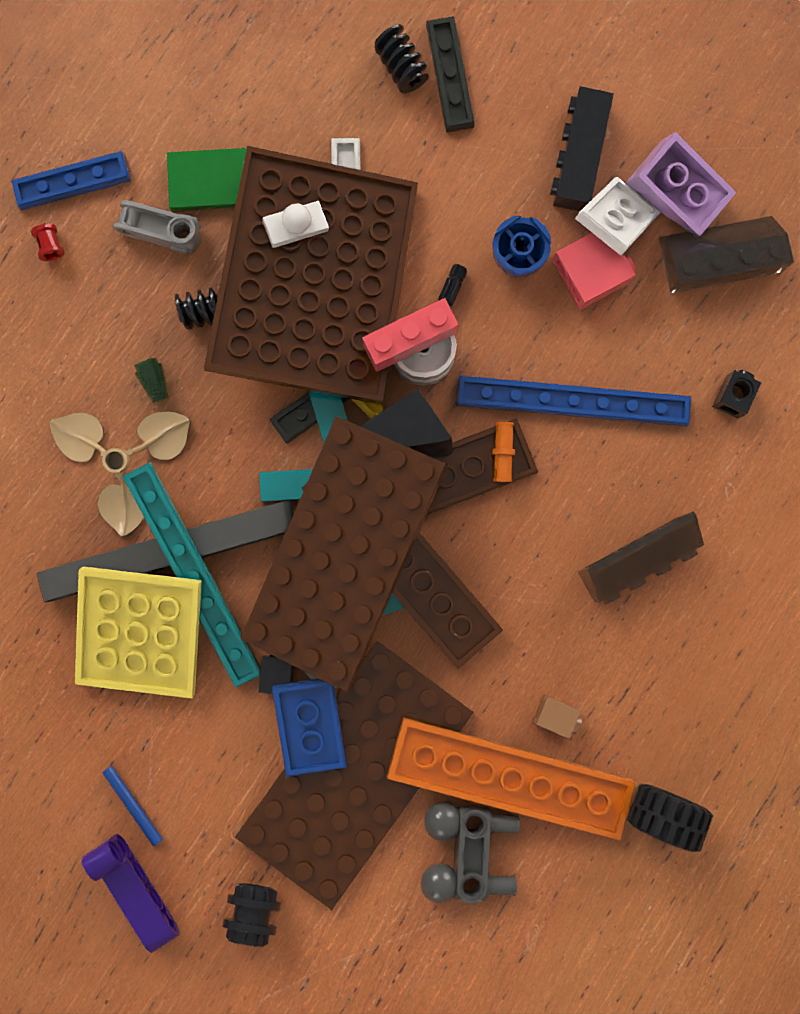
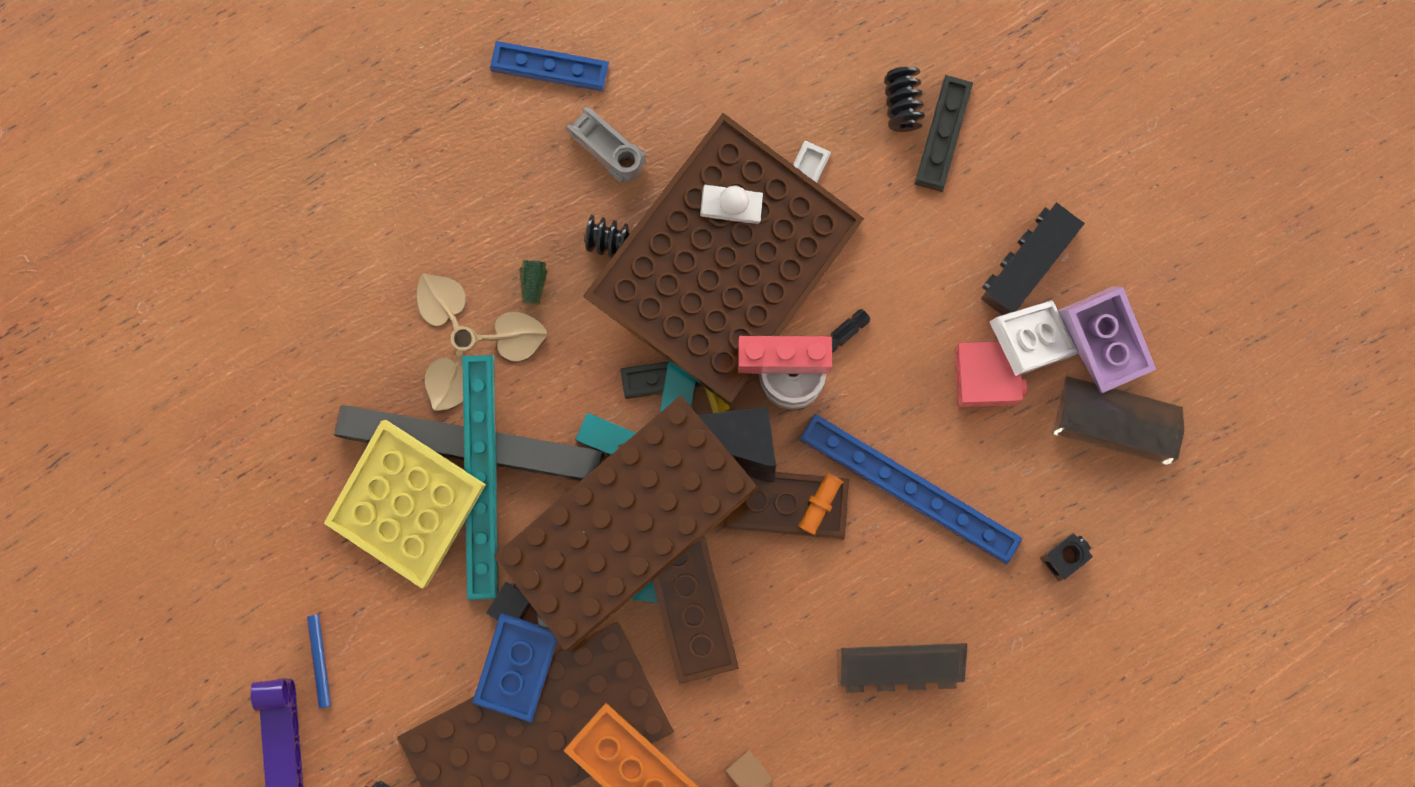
camera: 25 degrees right, 5 degrees down
(47, 242) = (500, 111): red bush -> none
(204, 178) = (671, 121): green tile -> none
(521, 246) = (929, 322): blue cylinder -> none

